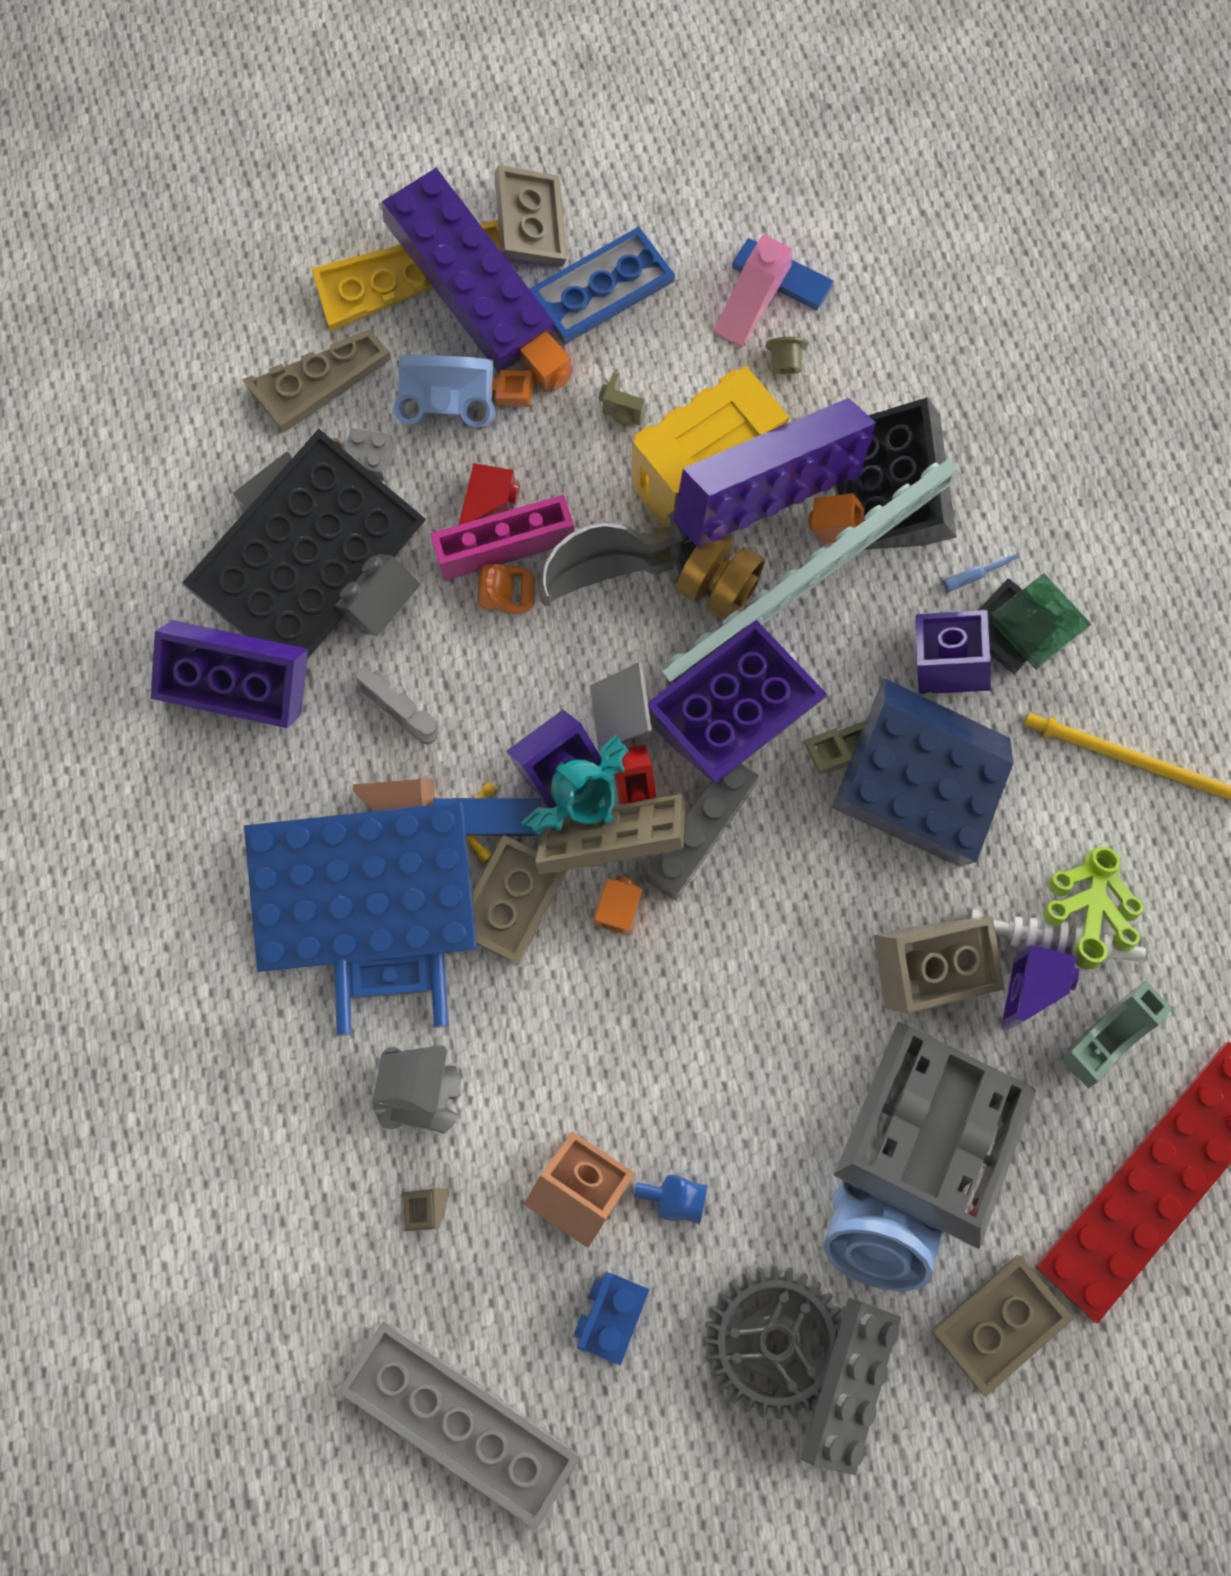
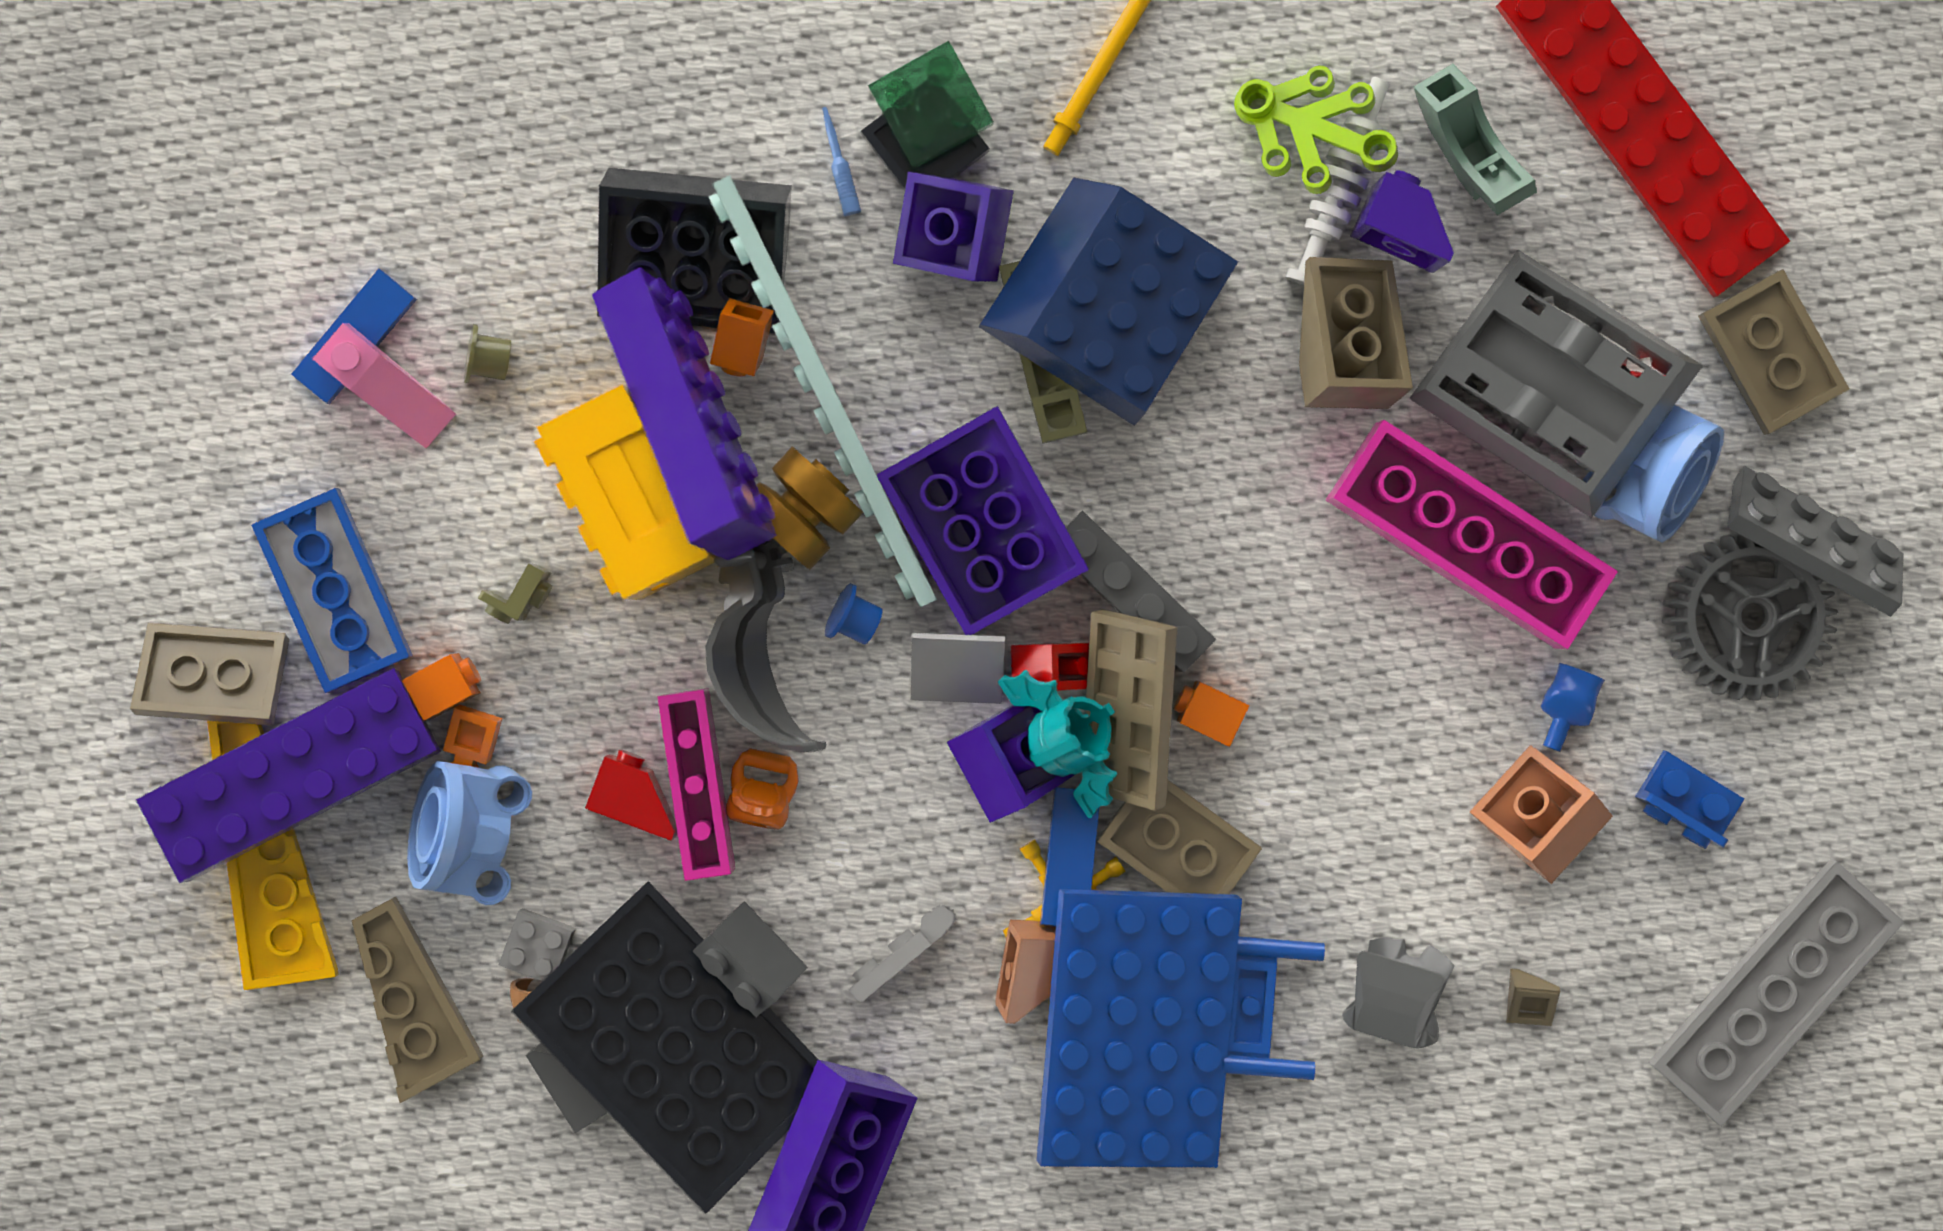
camera: 80 degrees left, 15 degrees up
(645, 630) = (853, 617): none -> blue piece
(798, 1087) = (1471, 535): none -> dark pink brick

